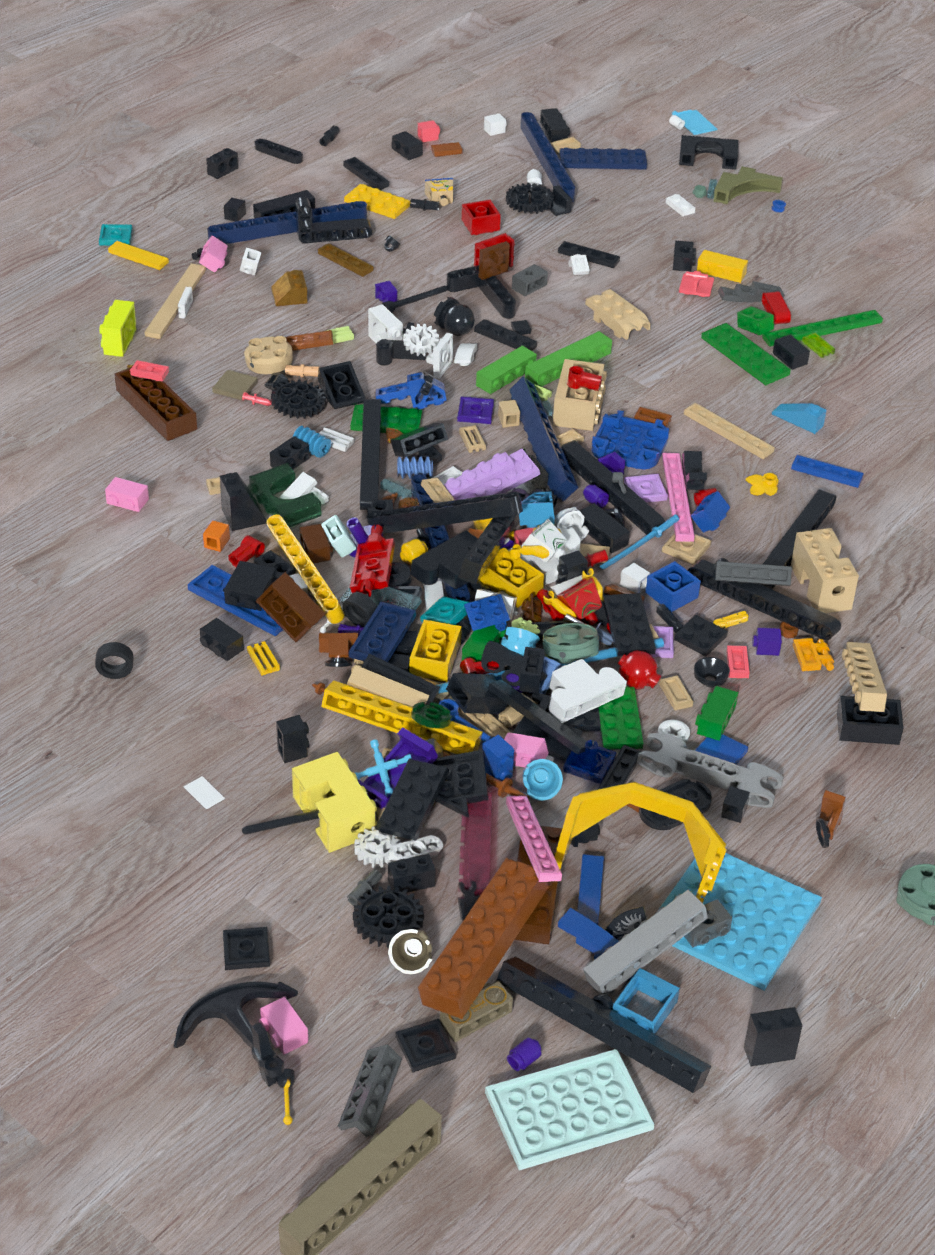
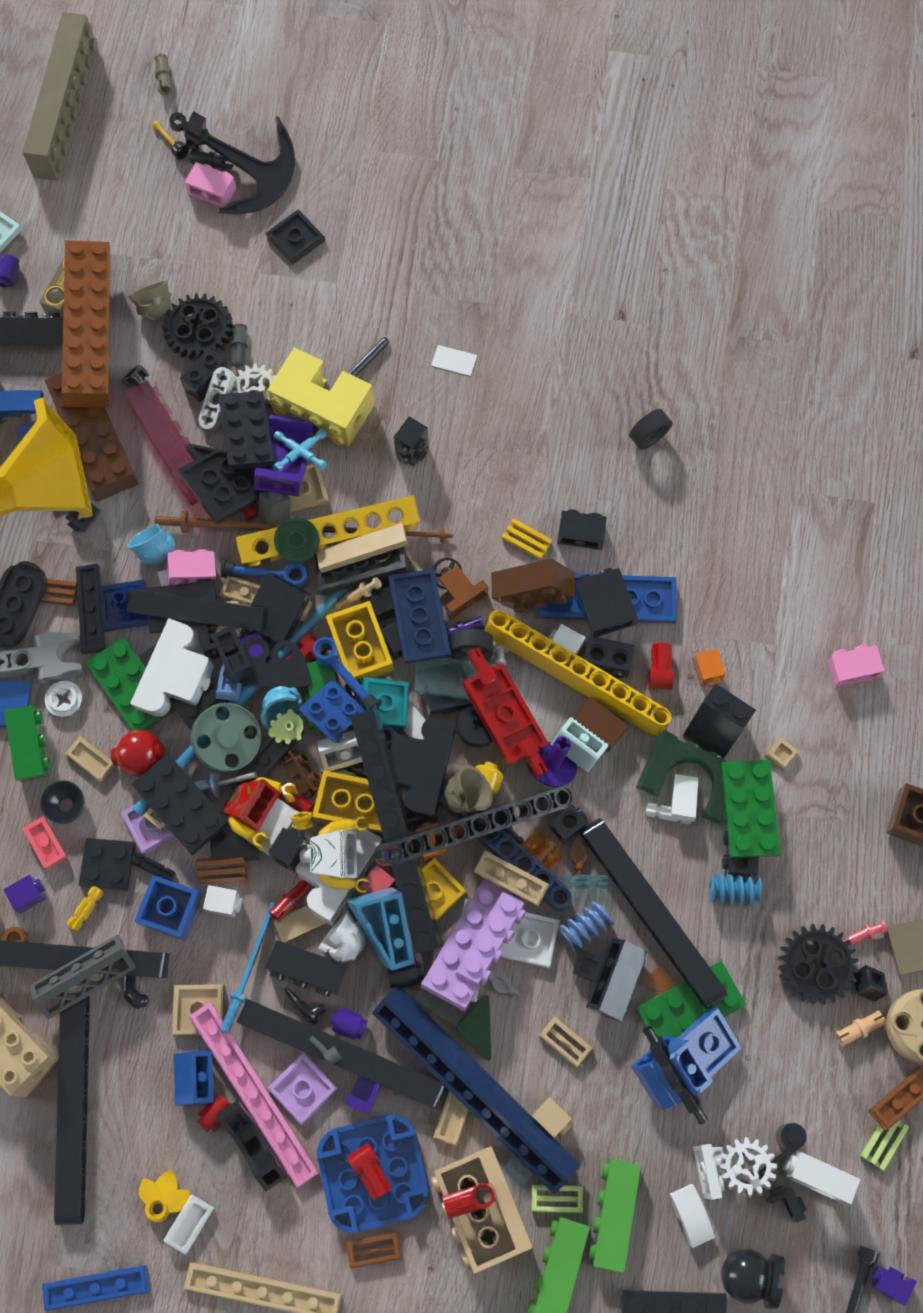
camera: 150 degrees right, 30 degrees up
(242, 1162) = (163, 74): none -> dark tan pin
(267, 458) = (750, 809): none -> green plate
(339, 441) = (740, 922): white tile -> none
(340, 385) = (782, 1018): black slope -> none
(373, 1090) = (104, 174): dark grey fence -> none
(407, 667) = (364, 590): none -> tan piece
(425, 1045) = (96, 230): black tile -> none
(434, 533) = (468, 791): none -> dark tan helmet
(464, 639) = (331, 660): none -> blue piece
(475, 410) = (600, 1105): dark purple tile -> none
(498, 758) = (204, 534): blue brick -> none
(533, 839) = (102, 438): bright pink tile -> none
(548, 580) = (301, 820): none -> yellow bush
(631, 434) = (366, 1165): none -> red piece
(754, 467) = (188, 1224): none -> white tile

